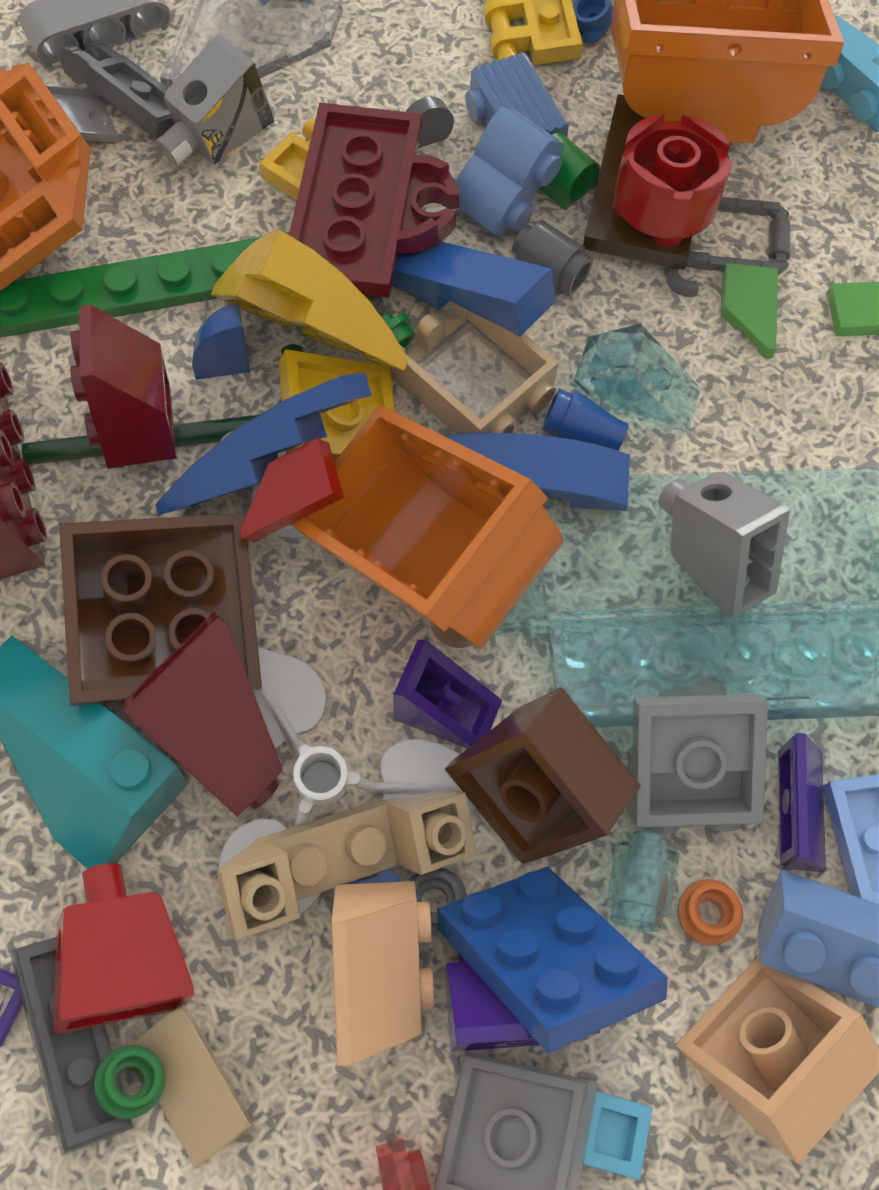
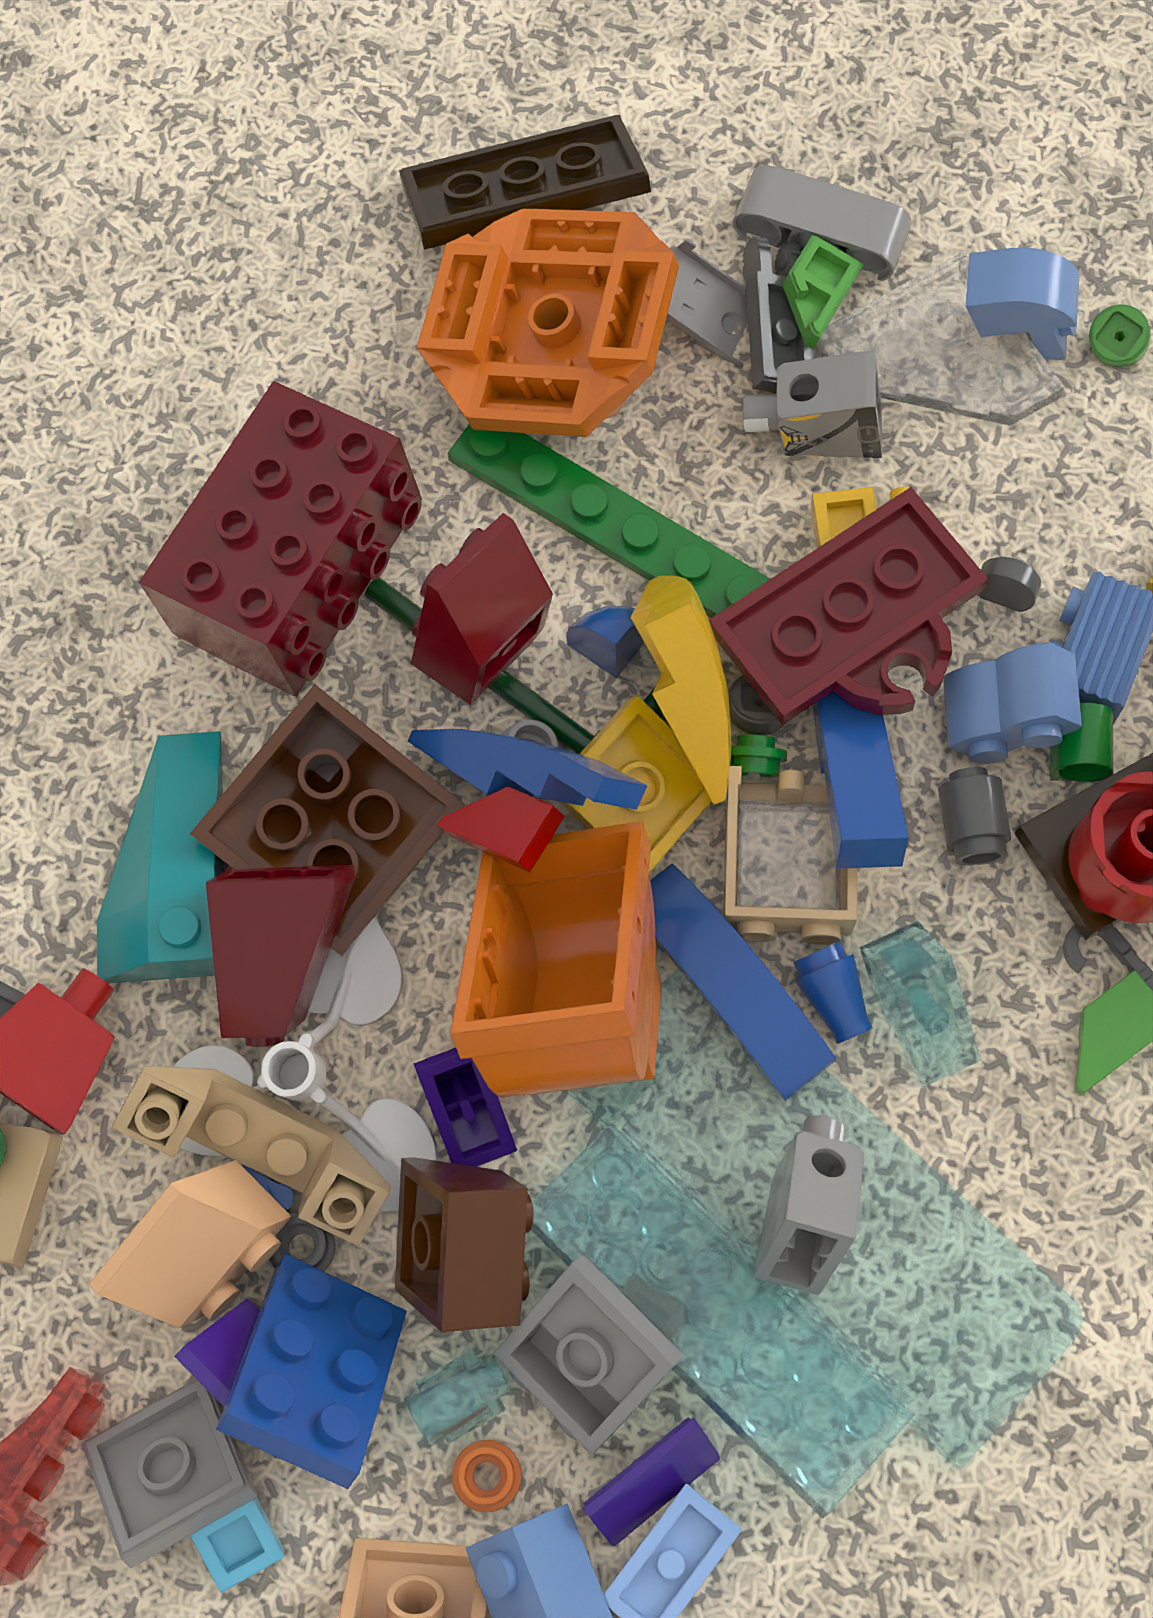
camera: 55 degrees right, 5 degrees up
(135, 48) = (819, 286): none -> bright green tile

